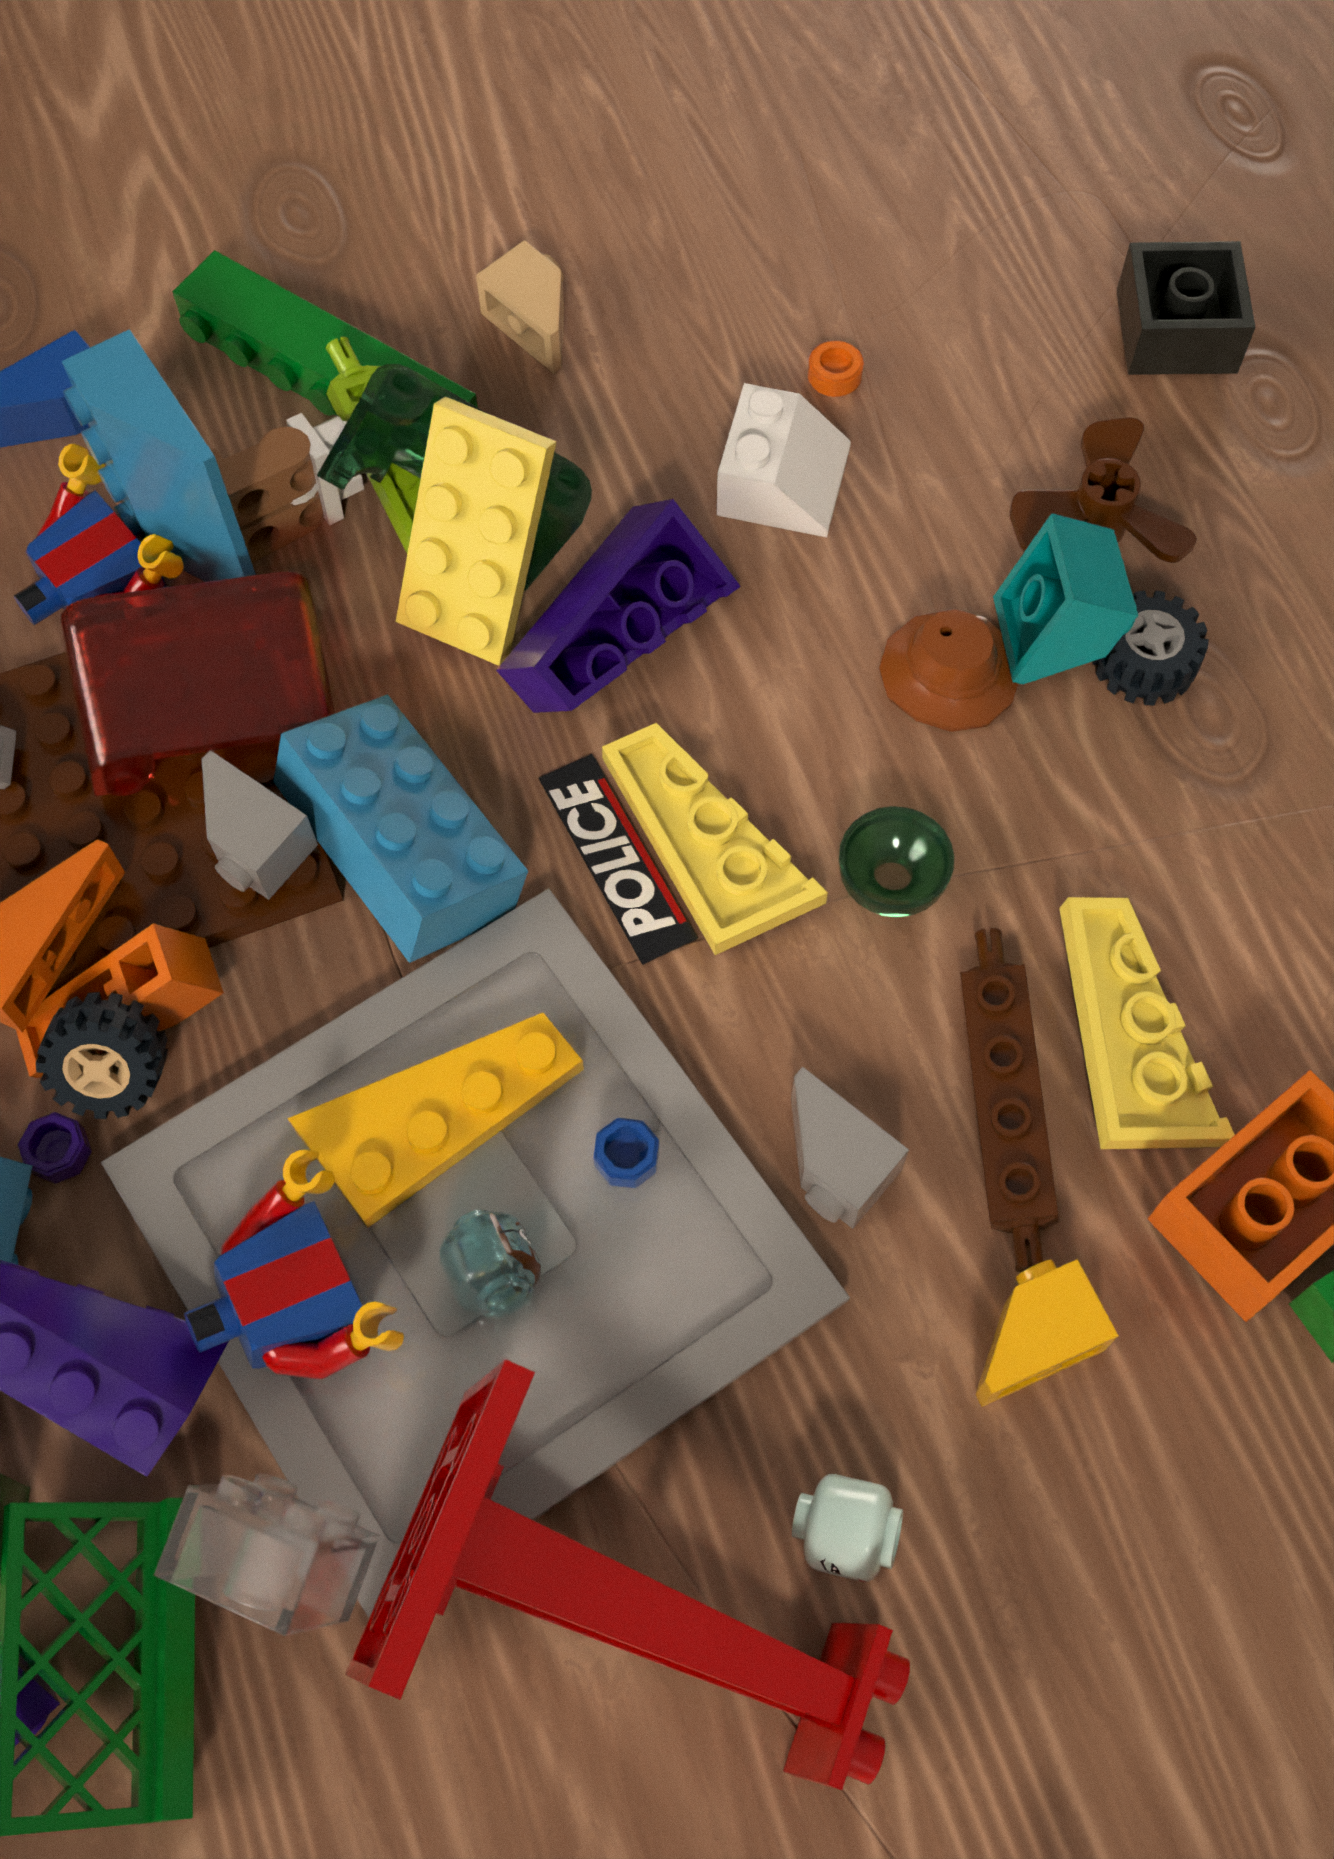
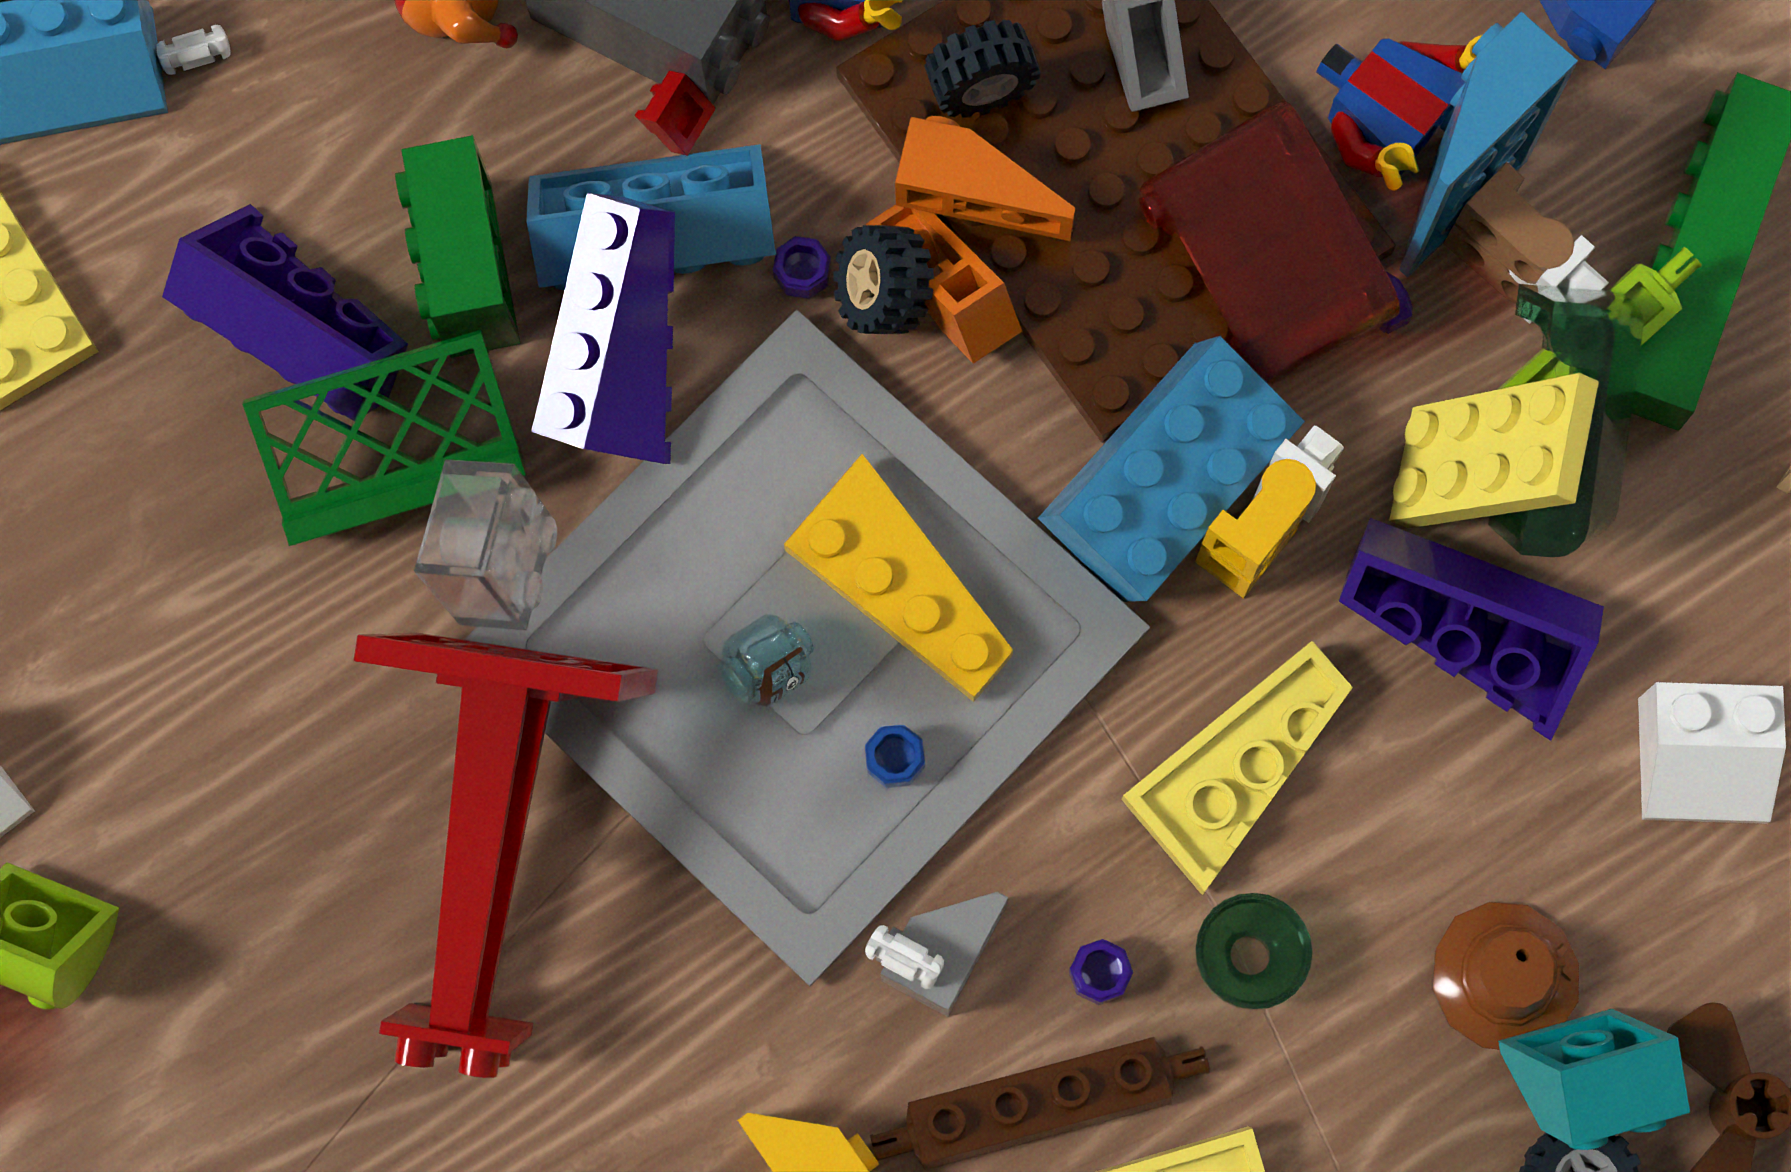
camera: 80 degrees right, 10 degrees up
(252, 829) = (1128, 336): light grey slope -> none
(289, 1287) = (705, 497): torso -> none
(471, 743) = (1289, 490): none -> yellow hips
(618, 859) = (1207, 685): sticker -> none
(848, 1527) = (605, 1018): light aqua head -> none
(849, 1176) = (904, 957): none -> white piece
(886, 1007) = (1100, 971): none -> dark purple tile

